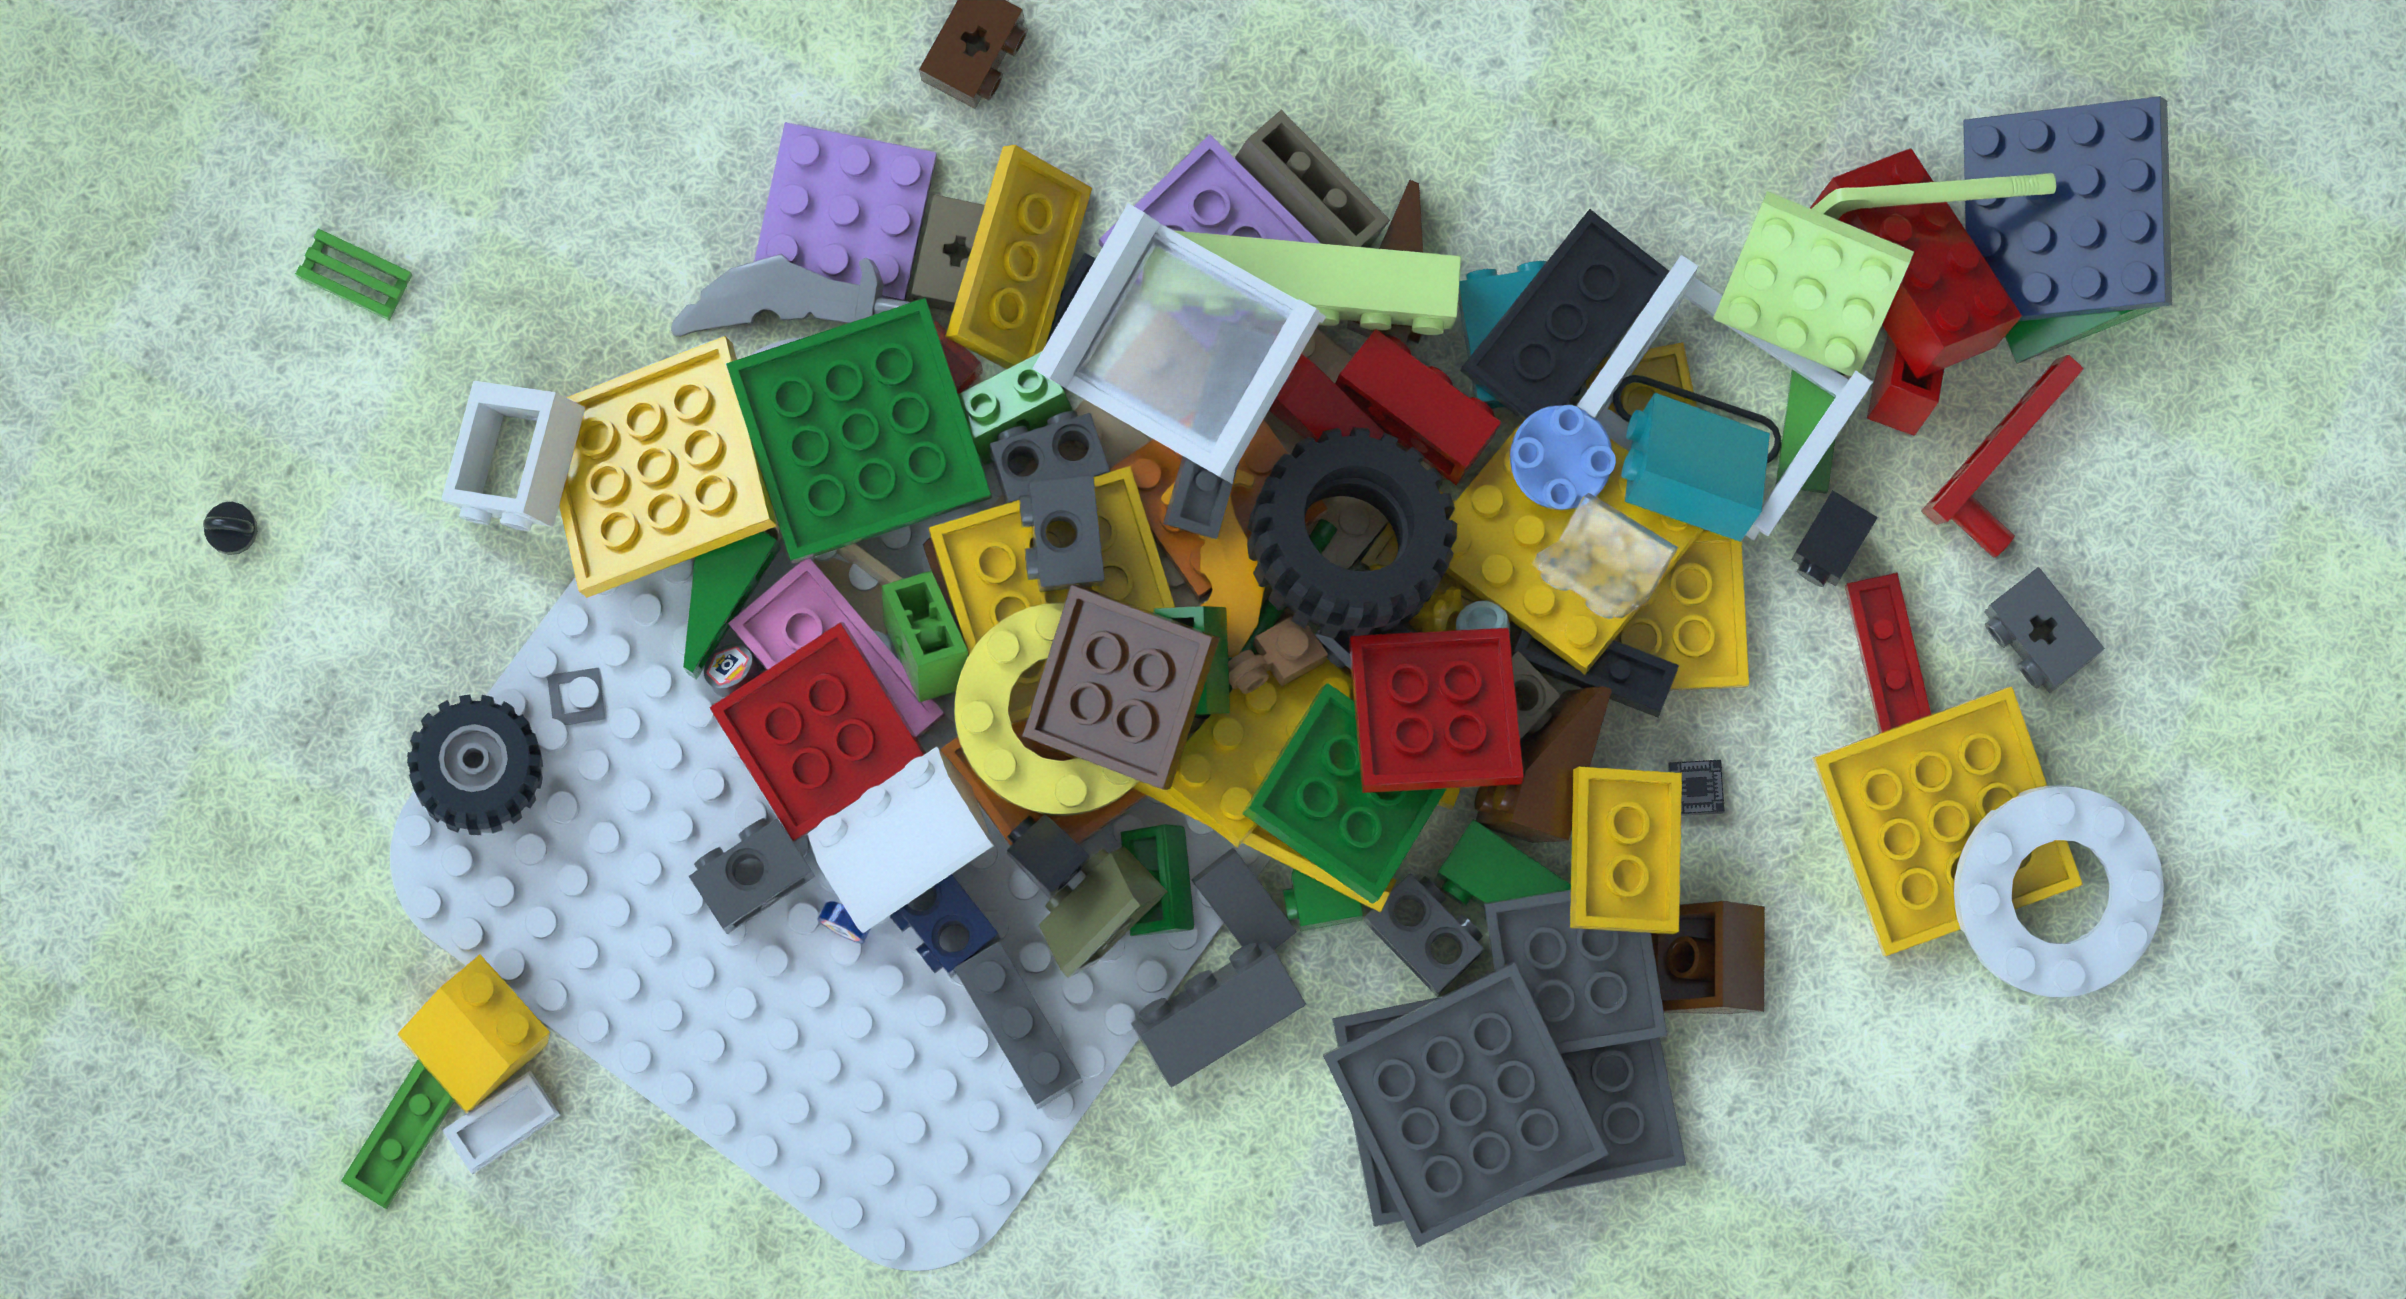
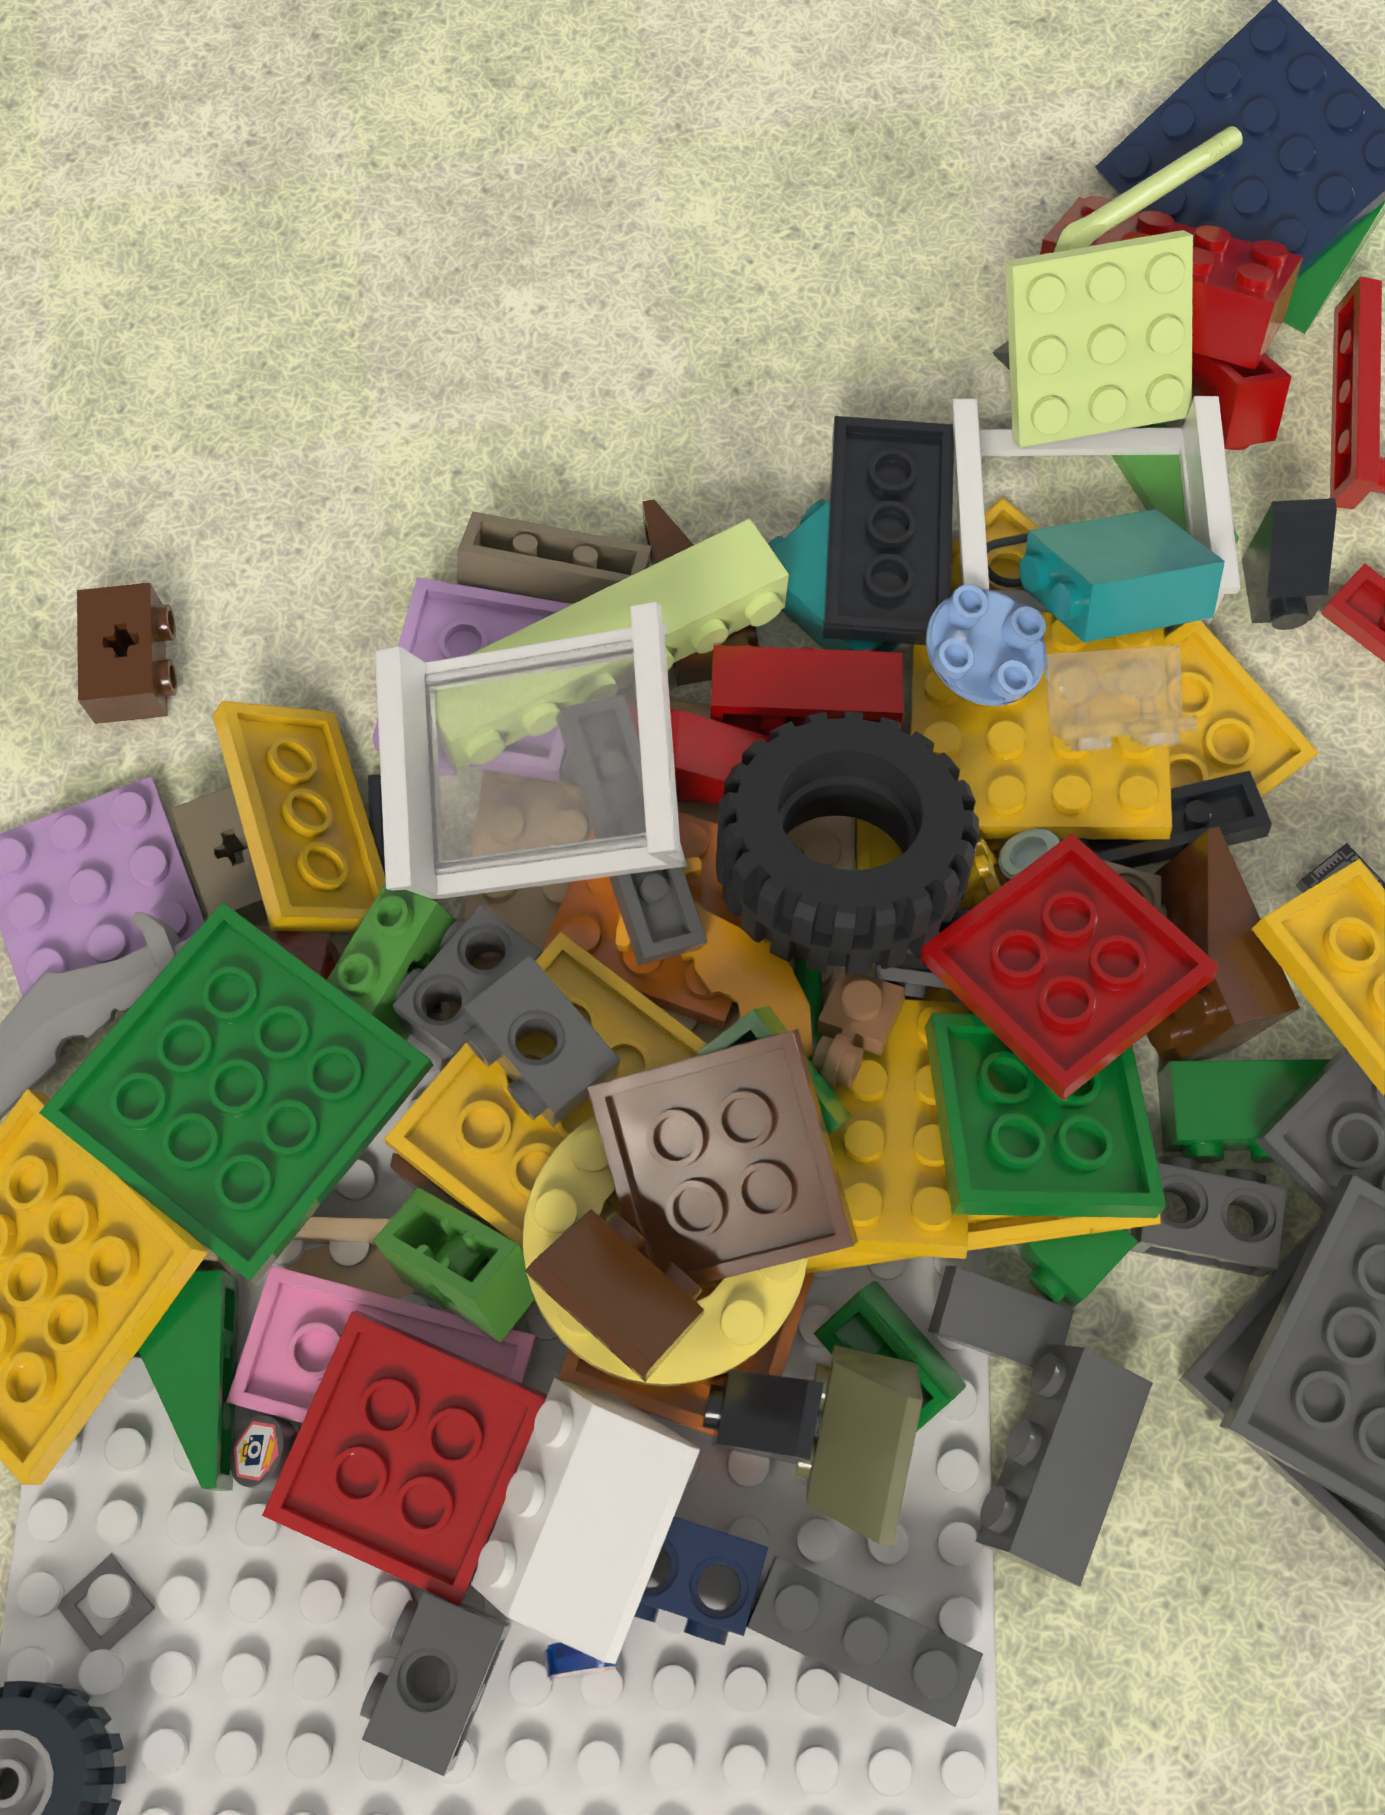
camera: 35 degrees left, 10 degrees down
(1004, 721) = (619, 1292): none -> reddish brown slope

